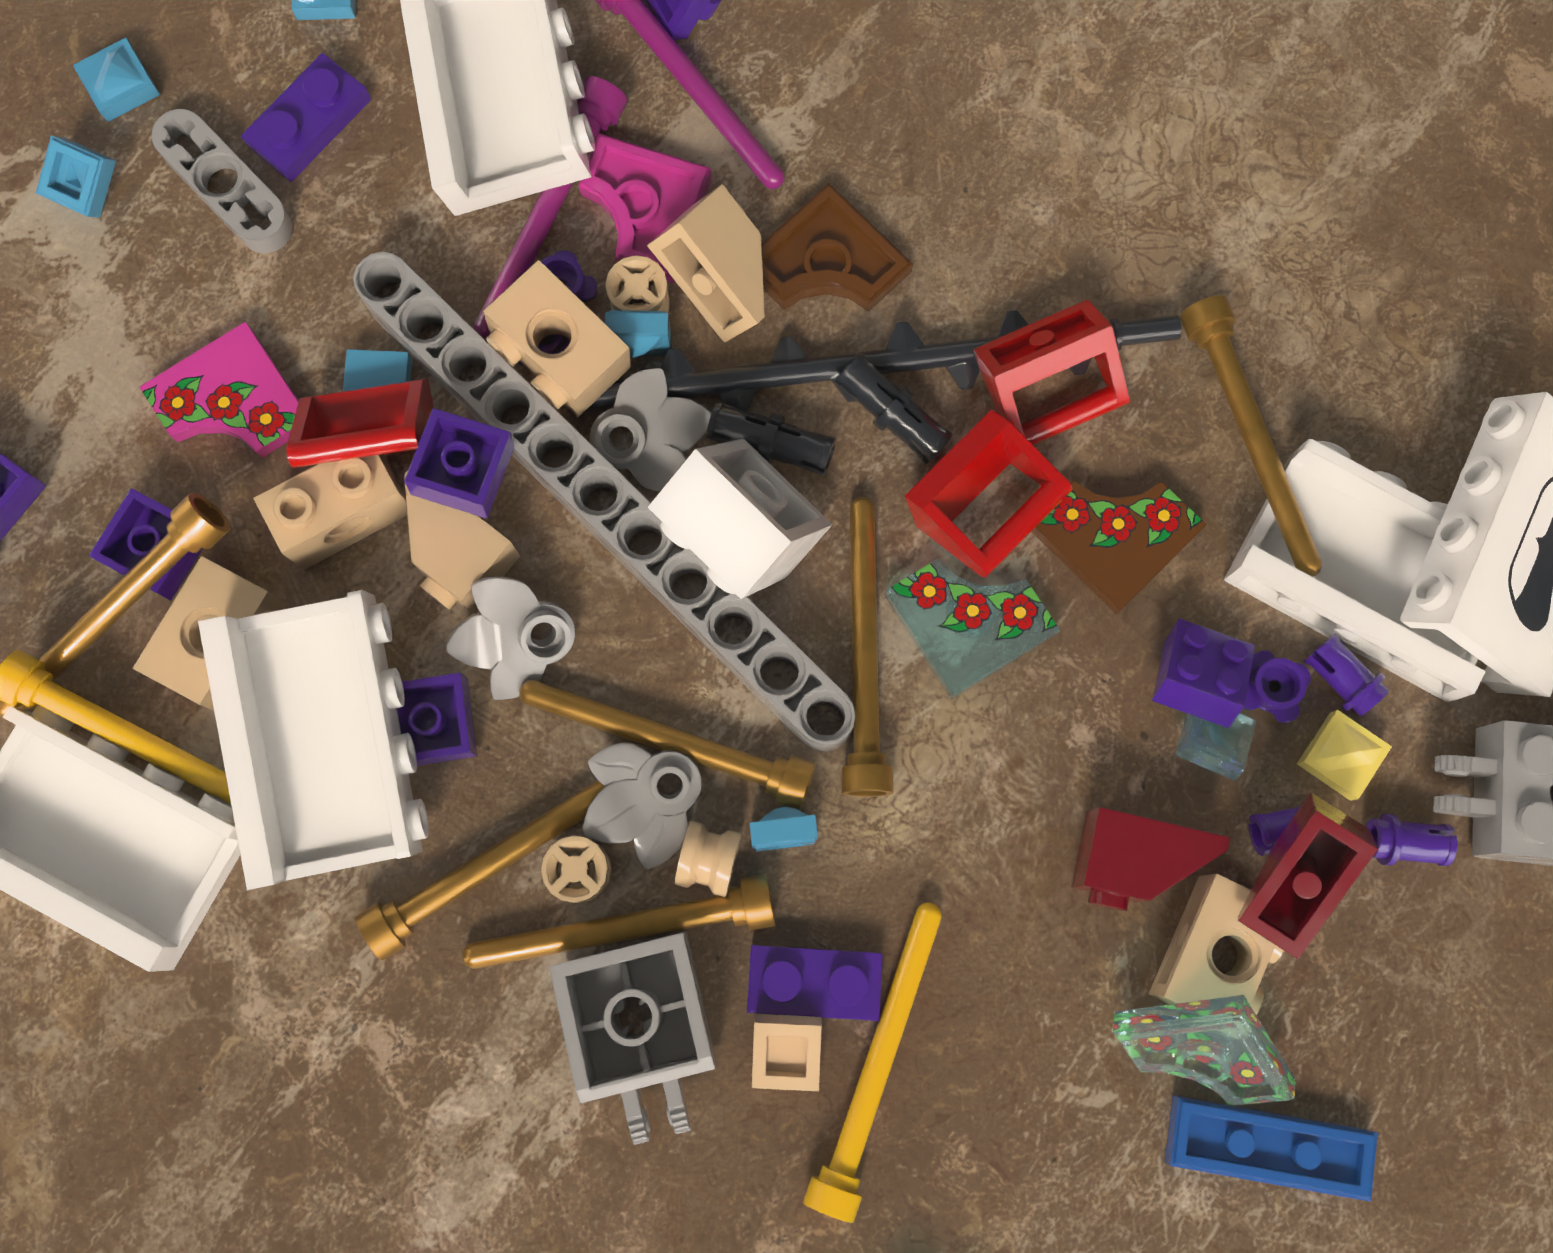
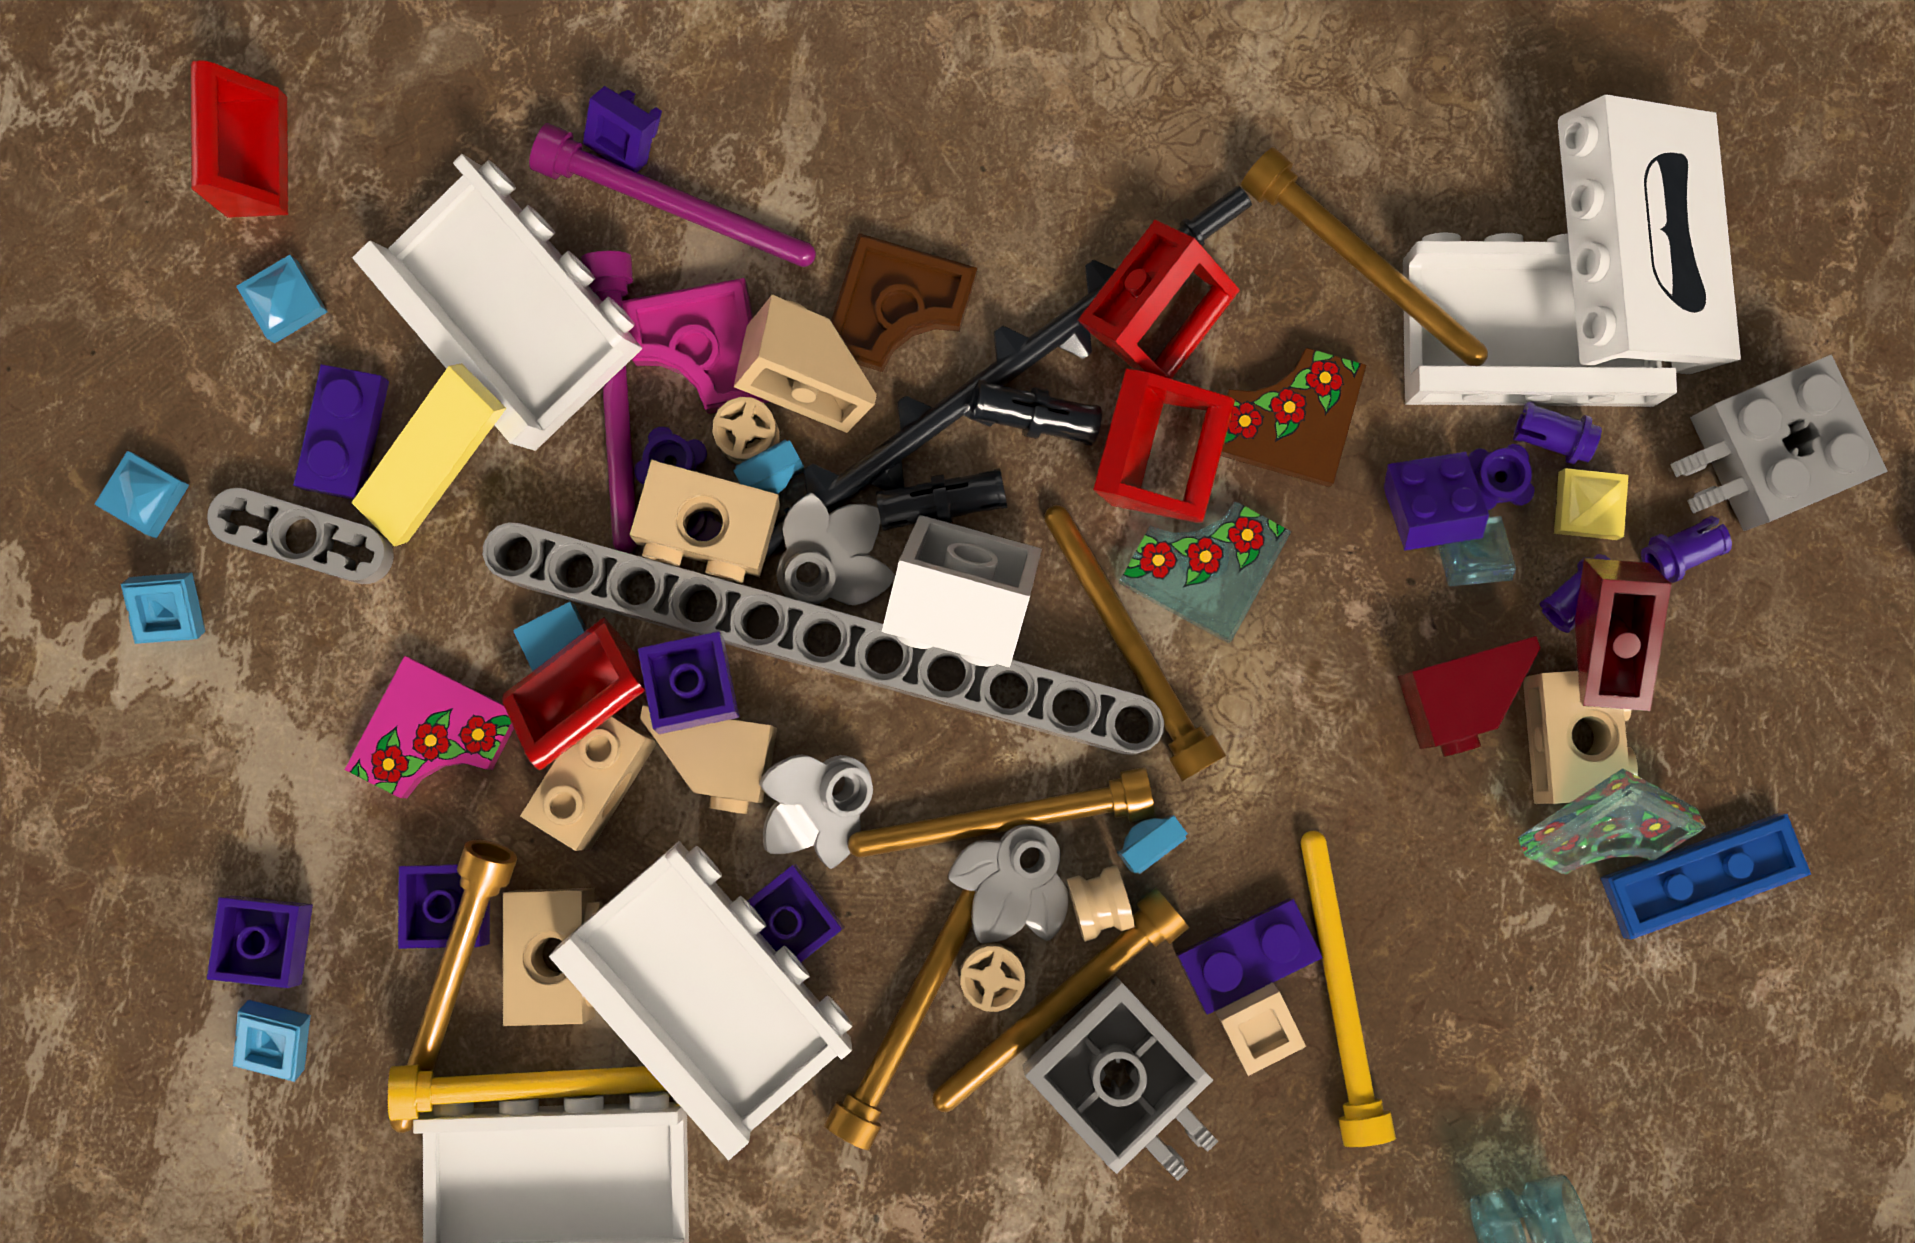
camera: 25 degrees left, 5 degrees up
(362, 164) = (428, 454): none -> light yellow tile

